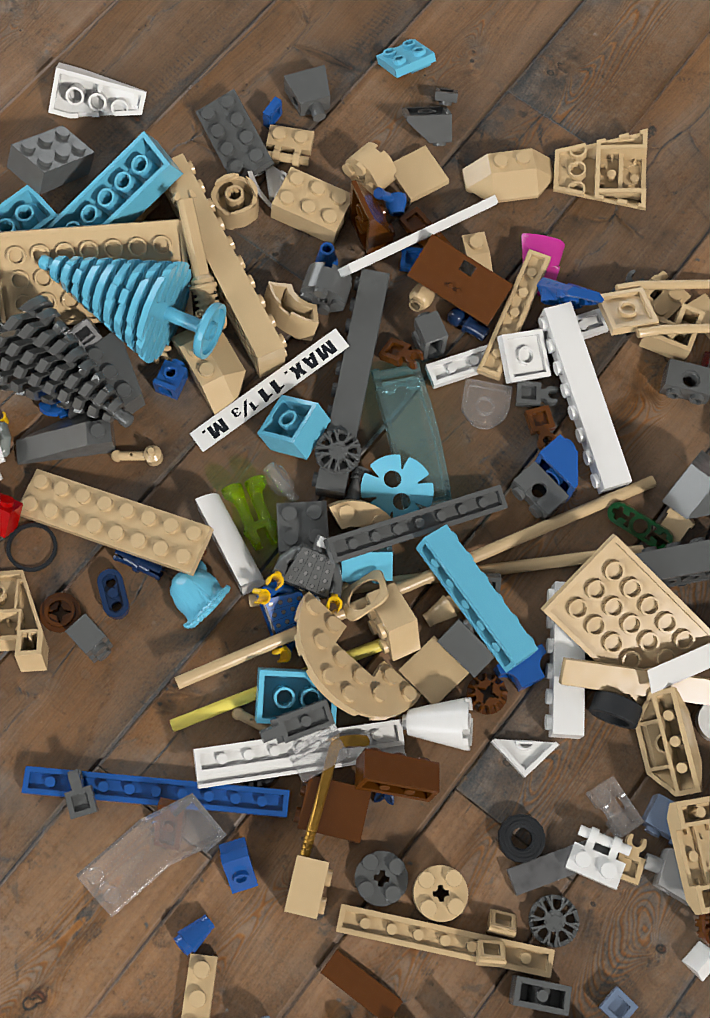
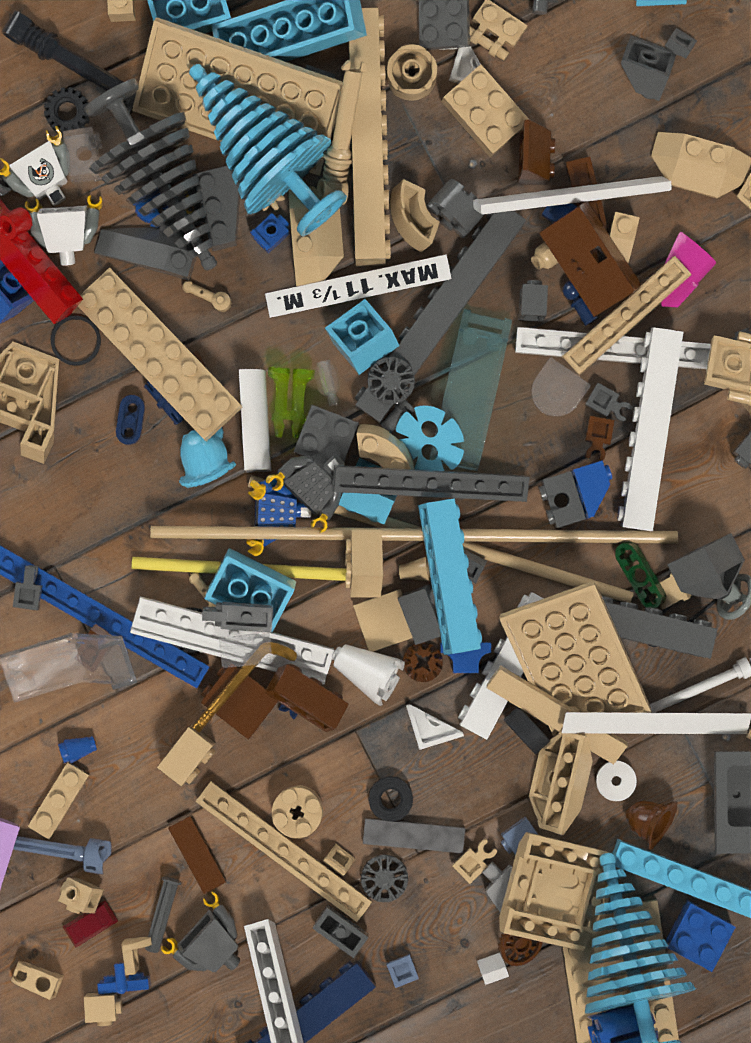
camera: 30 degrees right, 15 degrees up
(52, 604) = (72, 404): reddish brown gear -> none
(86, 333) = (207, 153): flat silver brick -> none
(90, 639) = (92, 455): dark grey brick -> none
(238, 865) = (137, 709): blue brick -> none
(251, 176) = (443, 80): white sticker -> none
(327, 254) = (474, 179): blue cone -> none
(339, 675) = (294, 591): tan plate -> none
(369, 888) = (268, 772): dark grey plate -> none
(370, 167) = (559, 99): tan brick -> none
(375, 575) = (333, 544): tan piece -> none
(394, 202) = (569, 142): blue bar -> none
(397, 352) = (498, 303): reddish brown plate -> none
(419, 174) = (610, 118): tan tile -> none
(491, 953) = (316, 879): tan slope -> none
(524, 356) = (613, 363): white tile -> none
(557, 293) = (685, 319): blue slope -> none
(595, 865) = (441, 851): white plate -> none
(619, 820) = (479, 800): clear brick -> none

